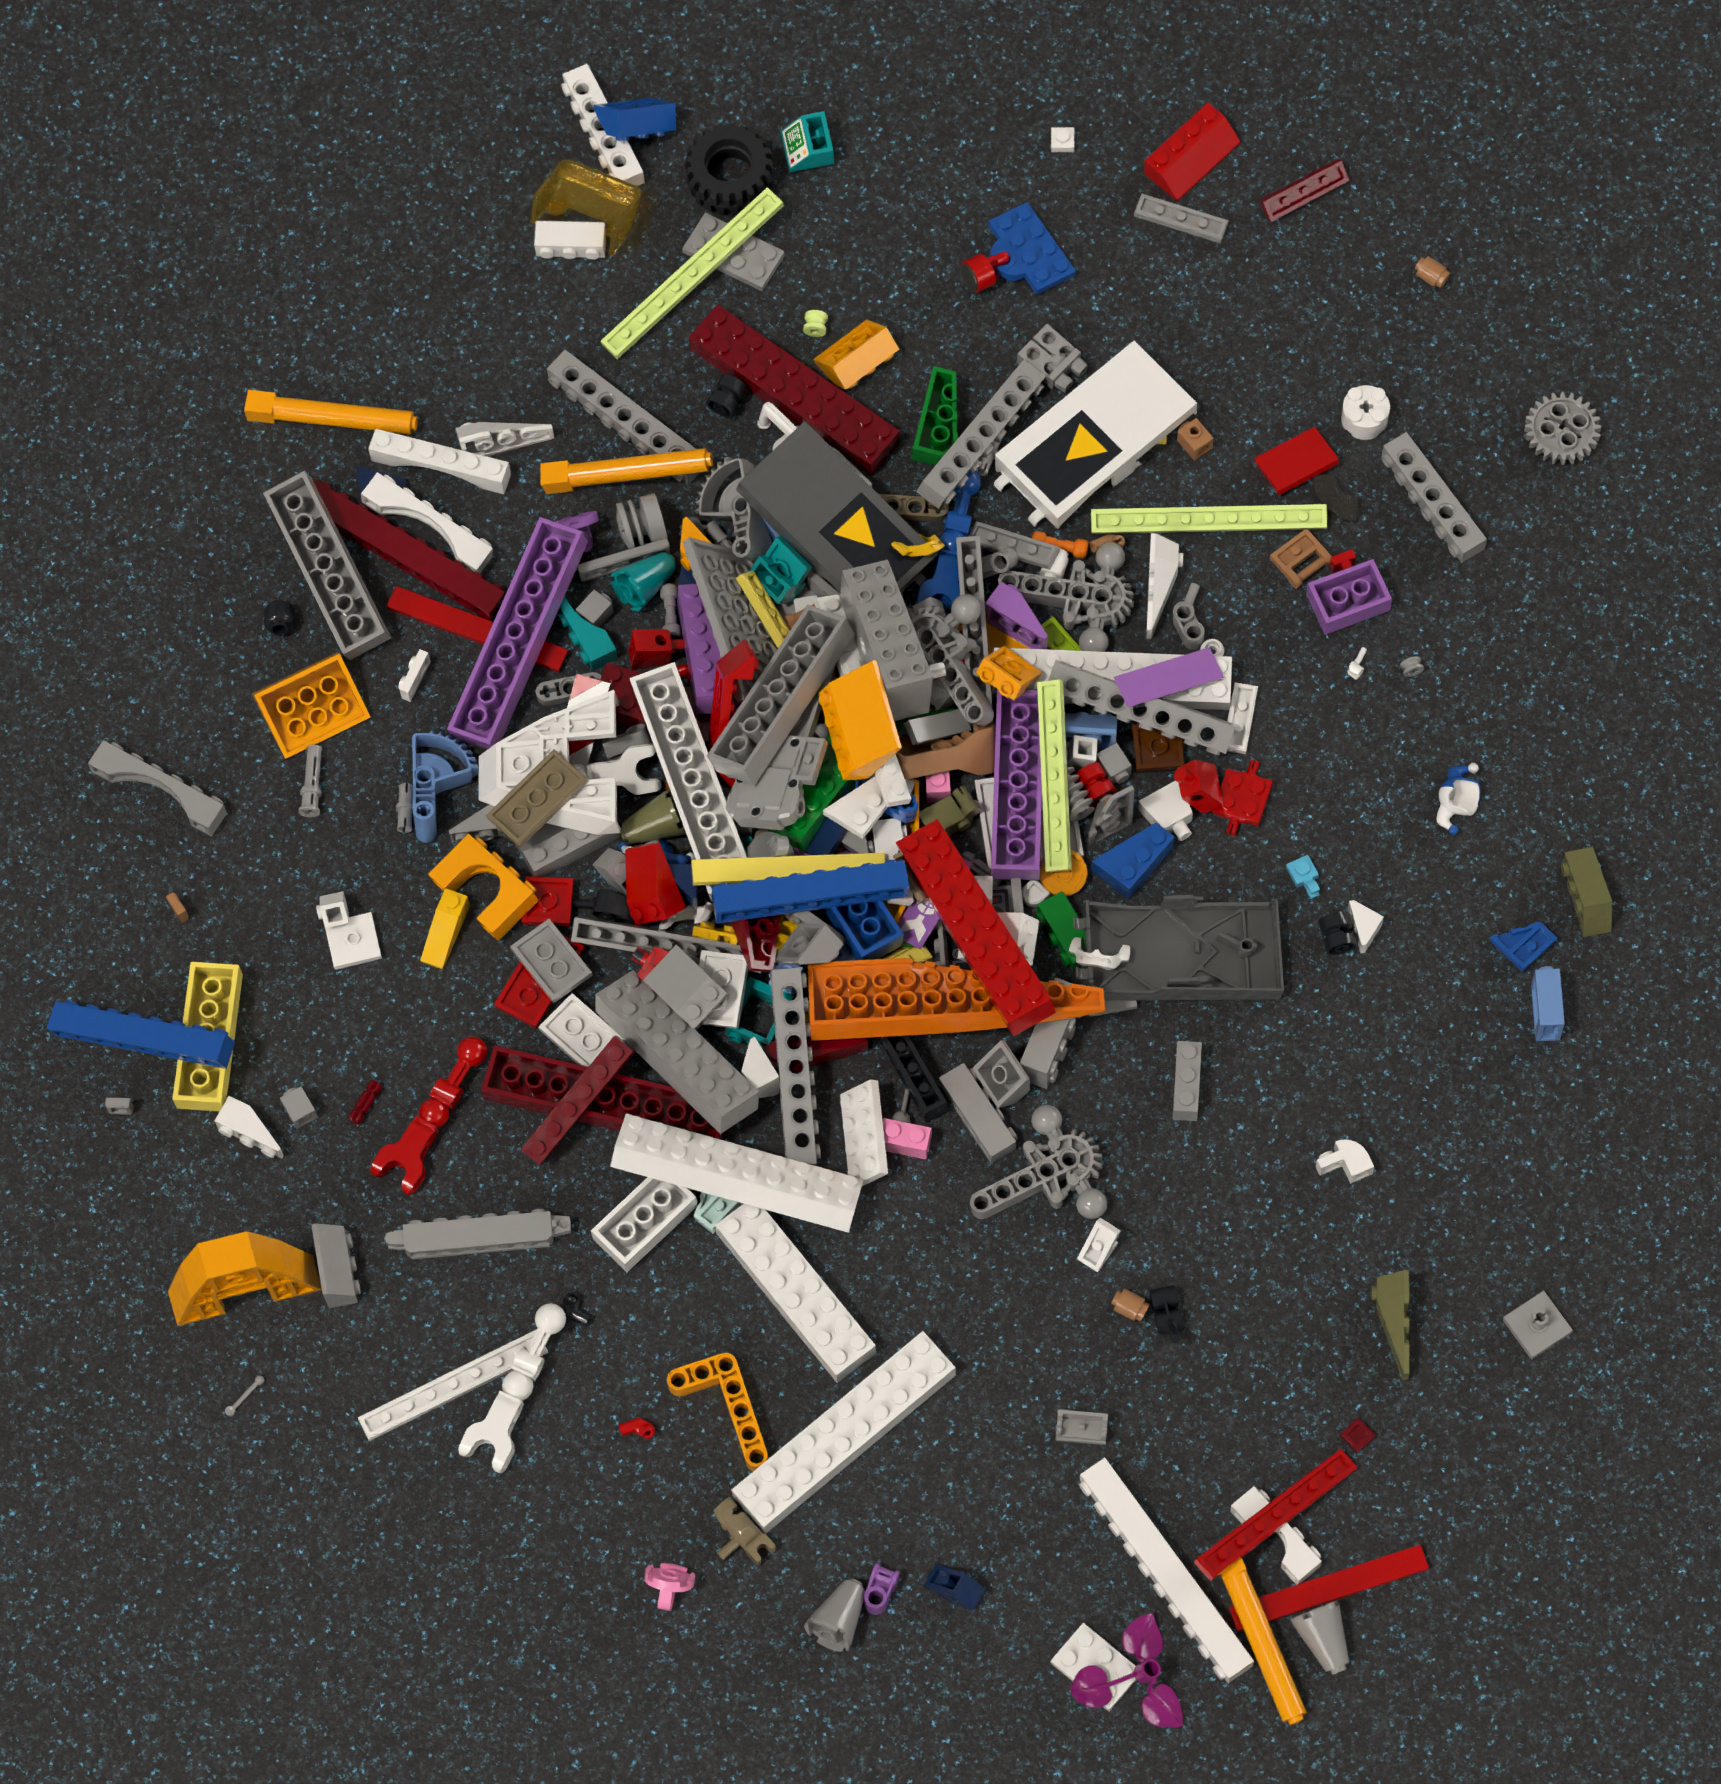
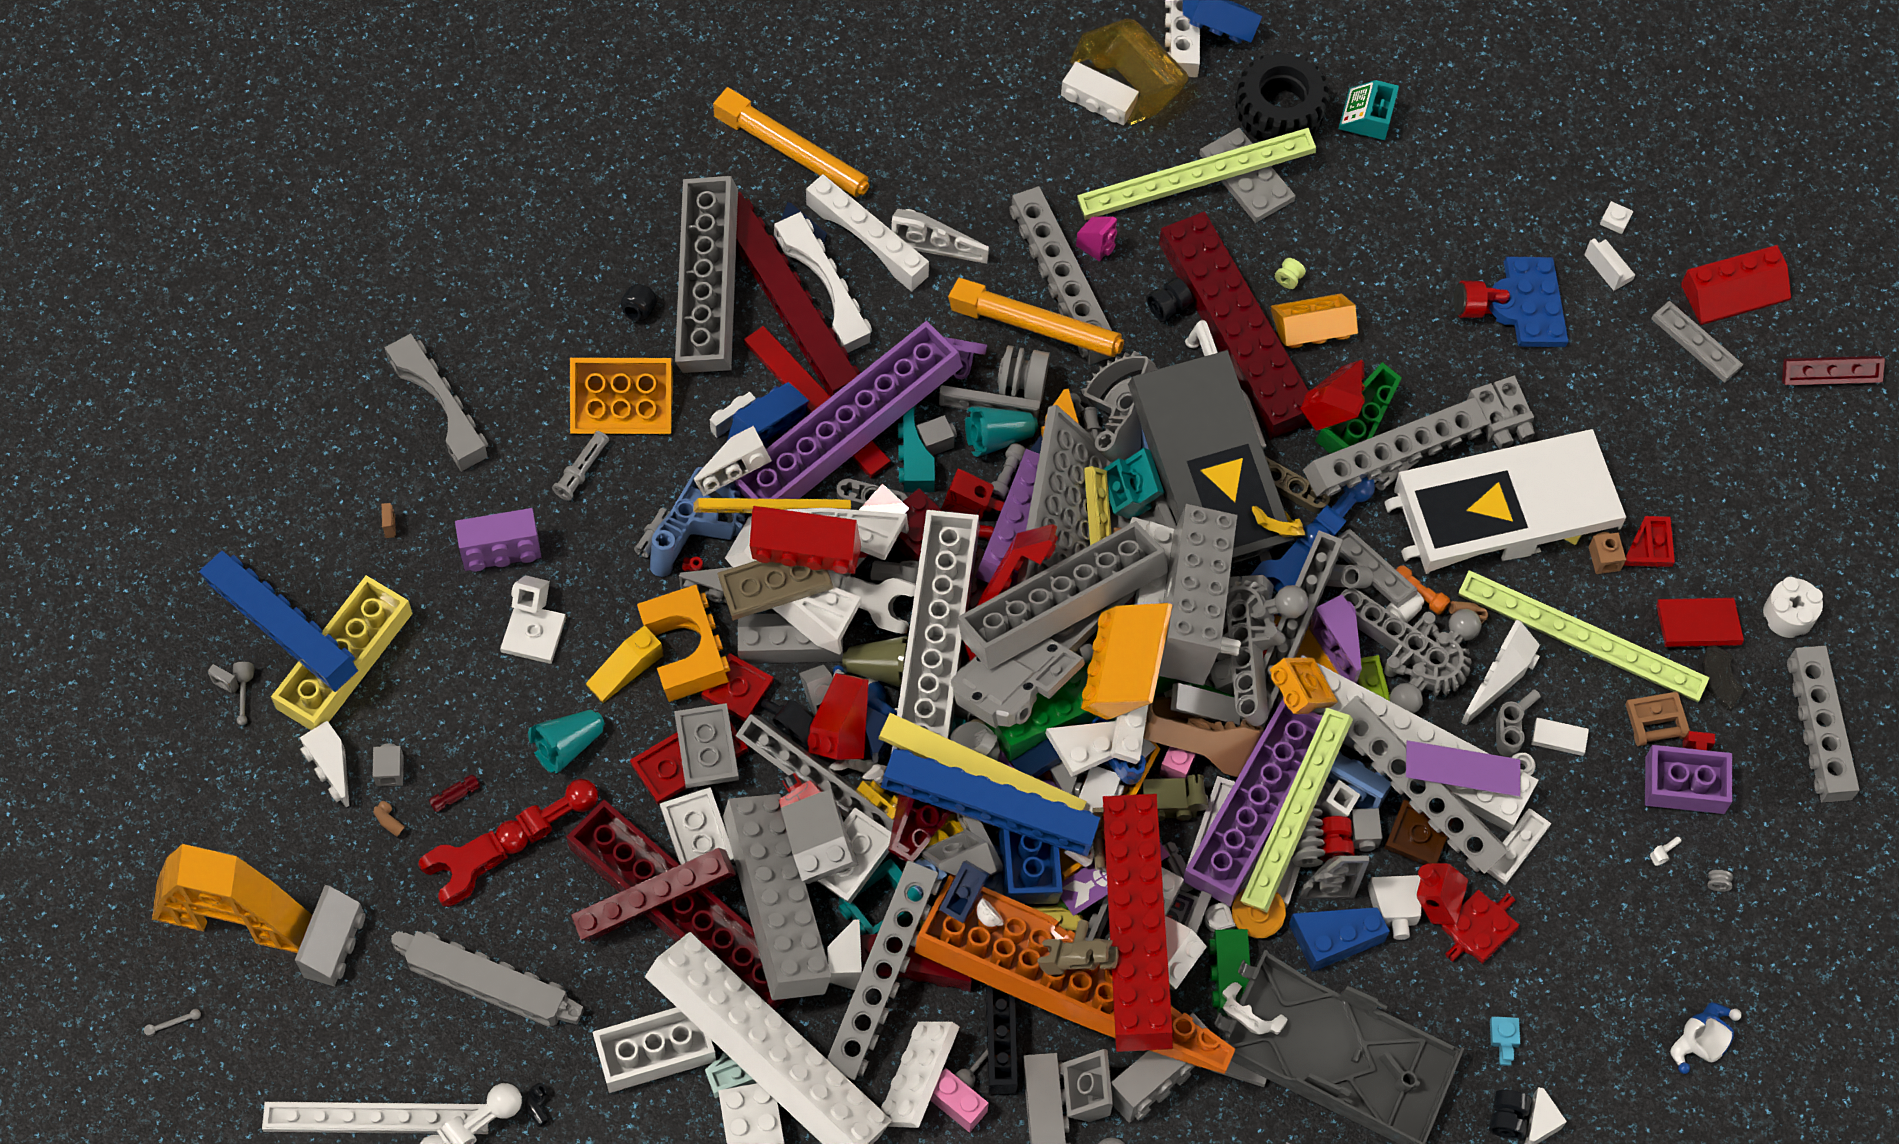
camera: 20 degrees right, 5 degrees down
(134, 1092) = (243, 673): none -> light grey hinge
(282, 878) = (498, 539): none -> medium lavender brick
(323, 1151) = (387, 821): none -> medium nougat arm
(431, 1013) = (564, 738): none -> teal cone
(444, 712) = (735, 459): none -> white slope
(445, 666) = (771, 413): none -> blue wedge
(453, 818) = (692, 564): none -> red arm
(488, 741) = (745, 505): none -> yellow tile
(546, 753) = (804, 540): none -> red slope
(638, 369) = (1097, 237): none -> dark pink slope
(829, 972) = (964, 891): none -> dark blue slope
(856, 980) = (988, 914): none -> white animal
(911, 414) = (1336, 397): none -> red wedge
(945, 975) = (1079, 953): none -> dark tan piece
(1076, 184) = (1608, 264): none -> white panel
(1227, 413) = (1652, 544): none -> red wing
(1230, 611) = (1560, 736): none -> white tile

